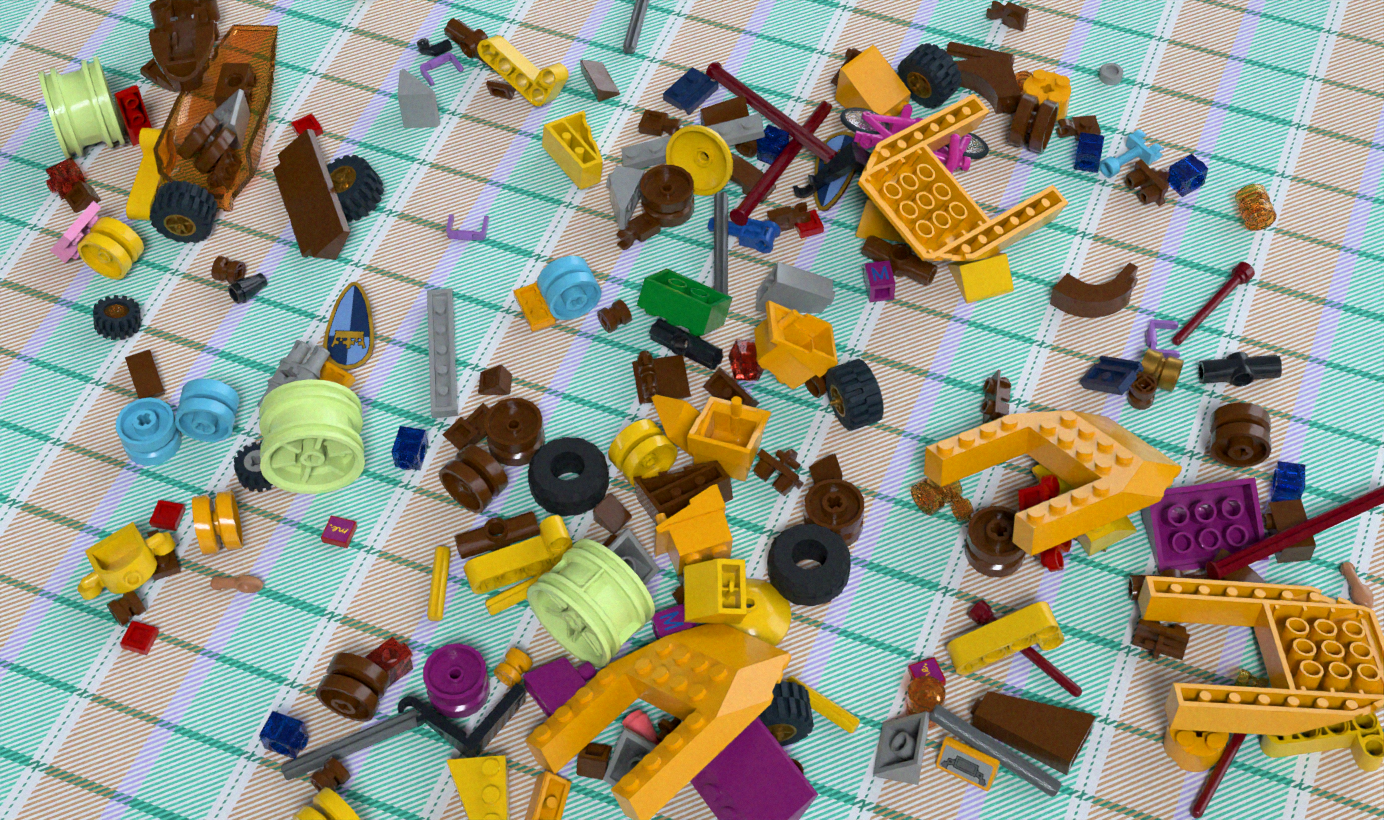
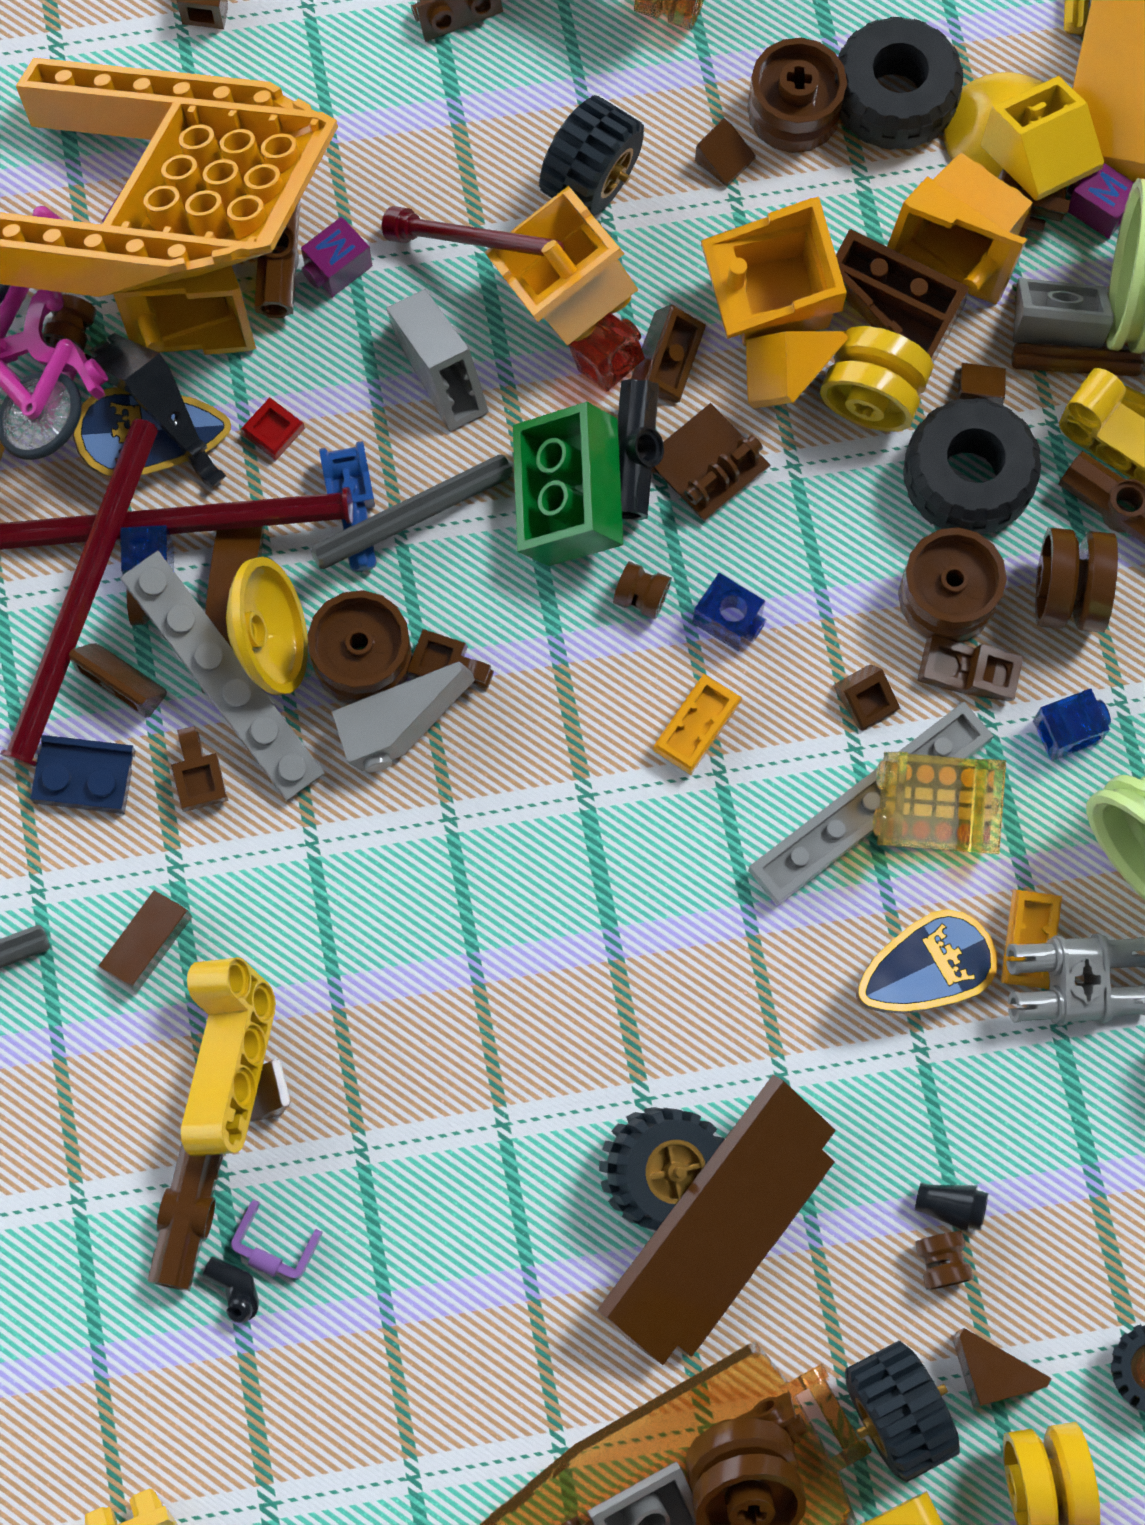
camera: 125 degrees left, 20 degrees up
(171, 263) = (992, 1372): none -> reddish brown slope
(307, 122) = (553, 1381): red tile -> none
(416, 102) = (407, 1201): light grey slope -> none
(419, 369) = (940, 802): none -> clear yellow panel
(465, 234) = (617, 933): medium lavender piece -> none
(569, 287) = (650, 669): medium azure wheel -> none
(574, 149) = (347, 858): yellow wedge -> none
(576, 343) = (725, 594): none -> clear blue brick
(786, 217) = (294, 457): reddish brown plate -> none
(787, 478) = (764, 194): reddish brown hips -> none
(877, 315) = (403, 225): none -> dark red piece

